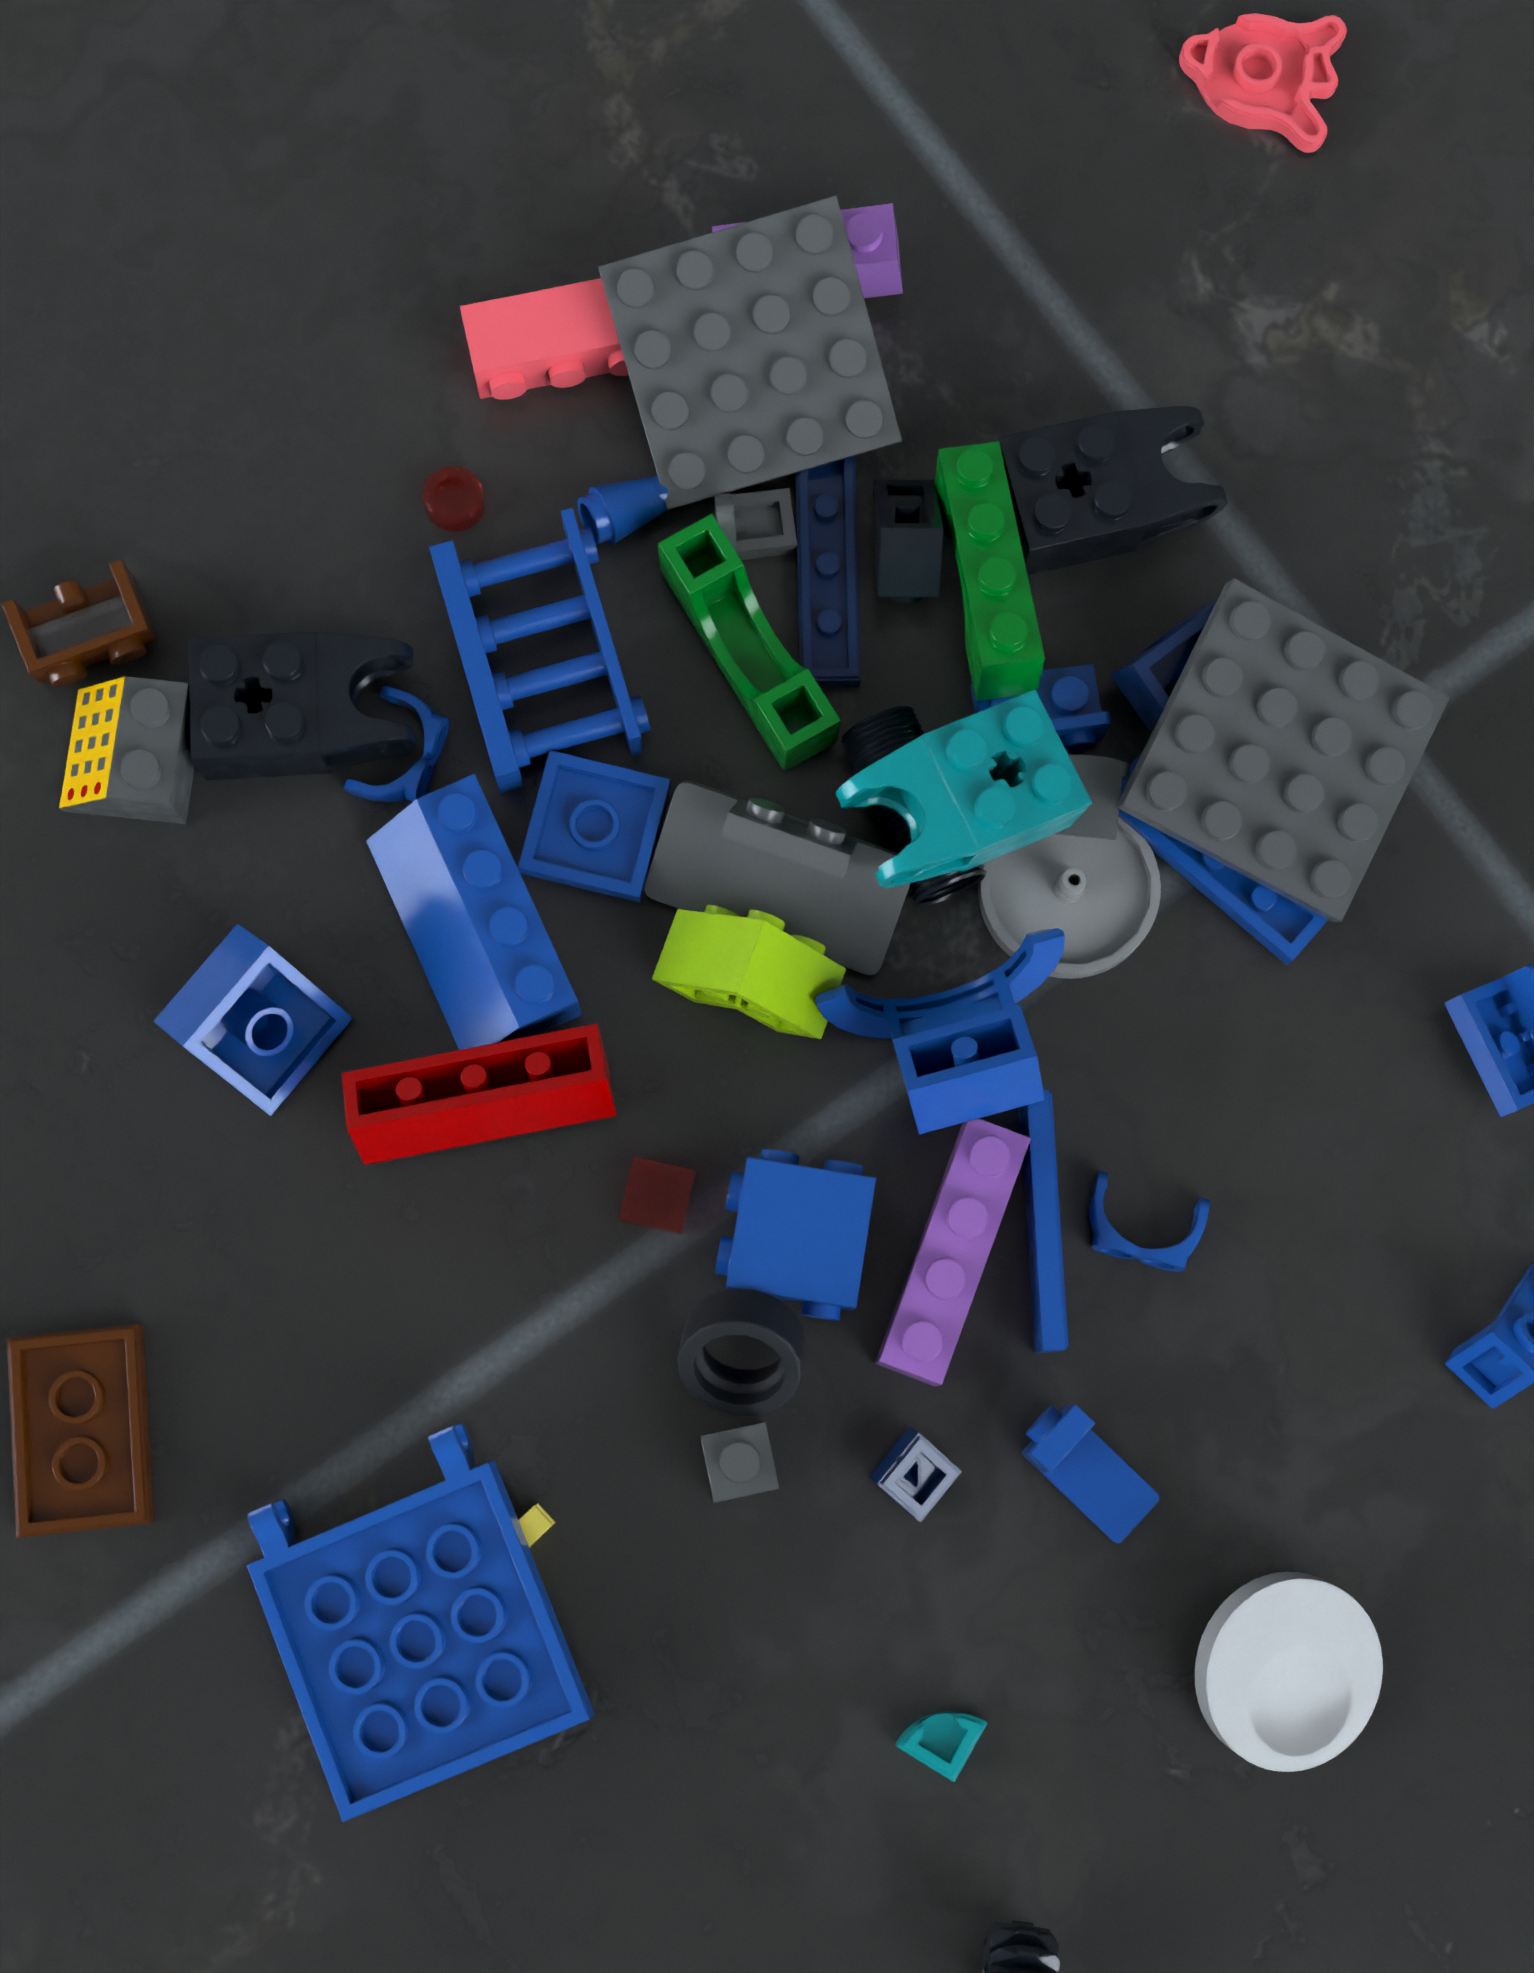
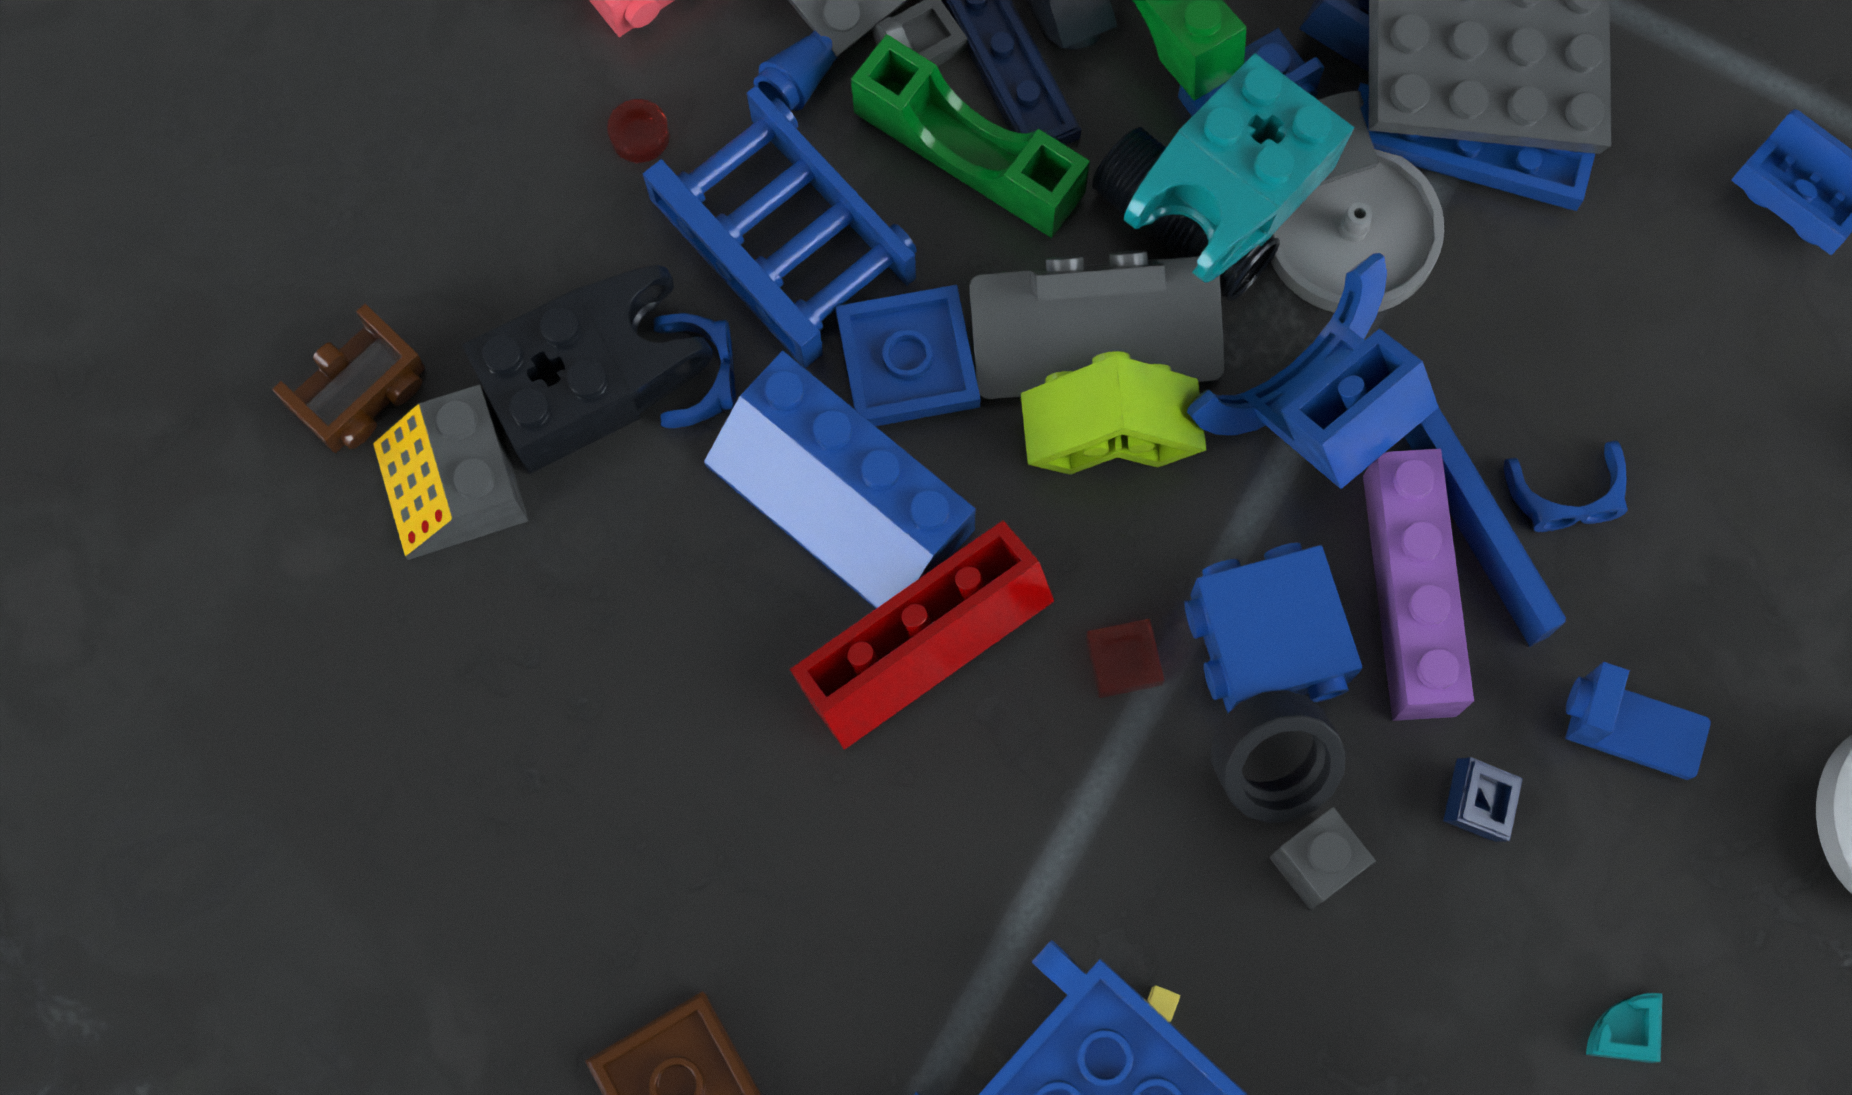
camera: 15 degrees left, 5 degrees down
(253, 1019) = (678, 662): blue slope -> none

